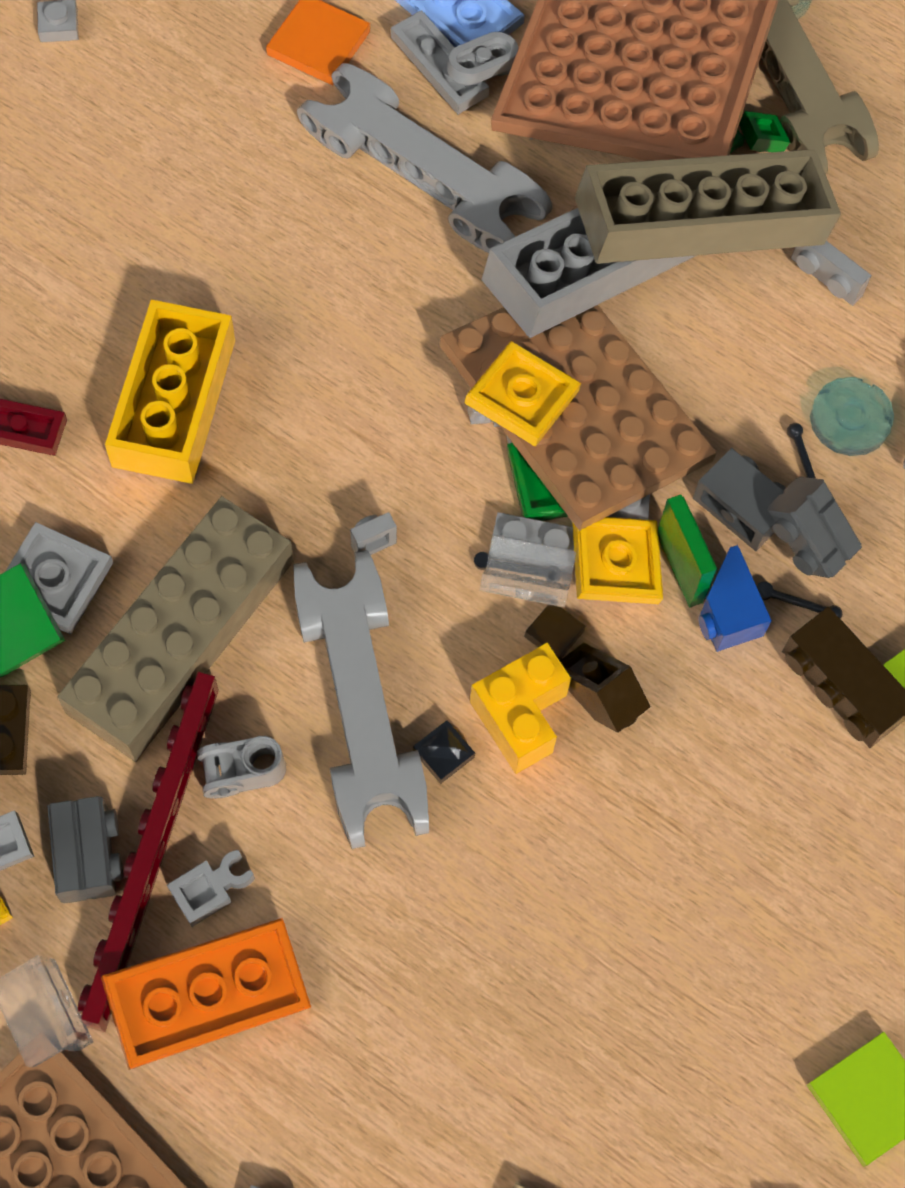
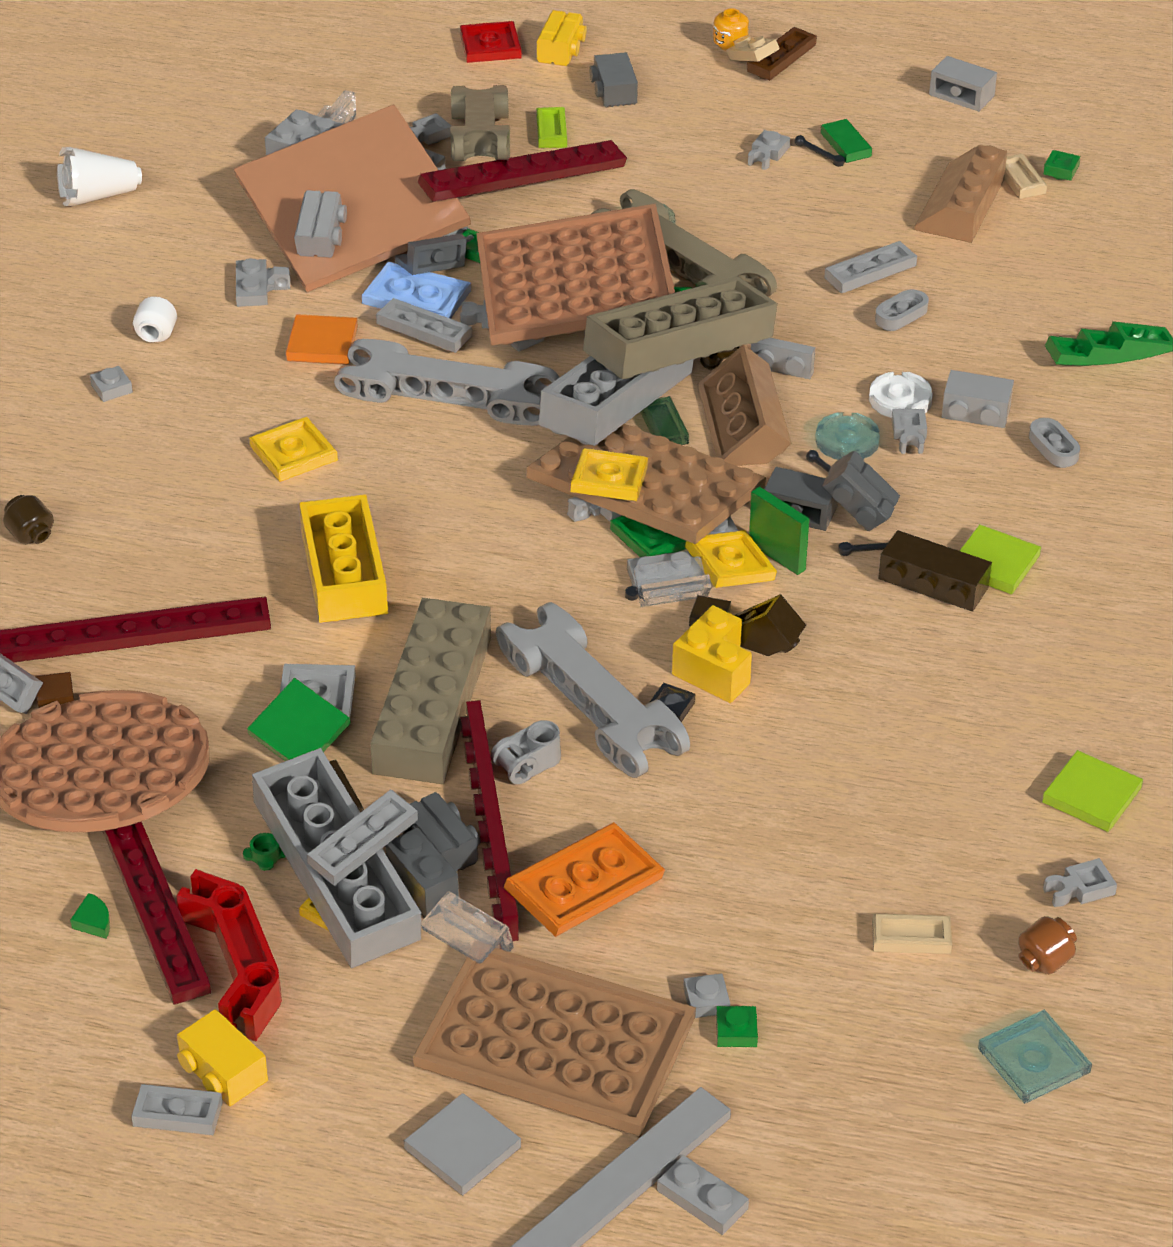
camera: 20 degrees left, 25 degrees down
(32, 907) = (422, 869): none -> dark grey brick
(204, 890) = (546, 831): light grey plate -> none
(208, 193) = (293, 449): none -> yellow tile
(374, 533) = (543, 592): light grey plate -> none
(482, 58) = (458, 308): light grey plate -> none
(646, 314) = (665, 421): none -> clear green tile
(733, 606) = (831, 557): blue slope -> none
(744, 335) = (744, 410): none -> medium nougat slope

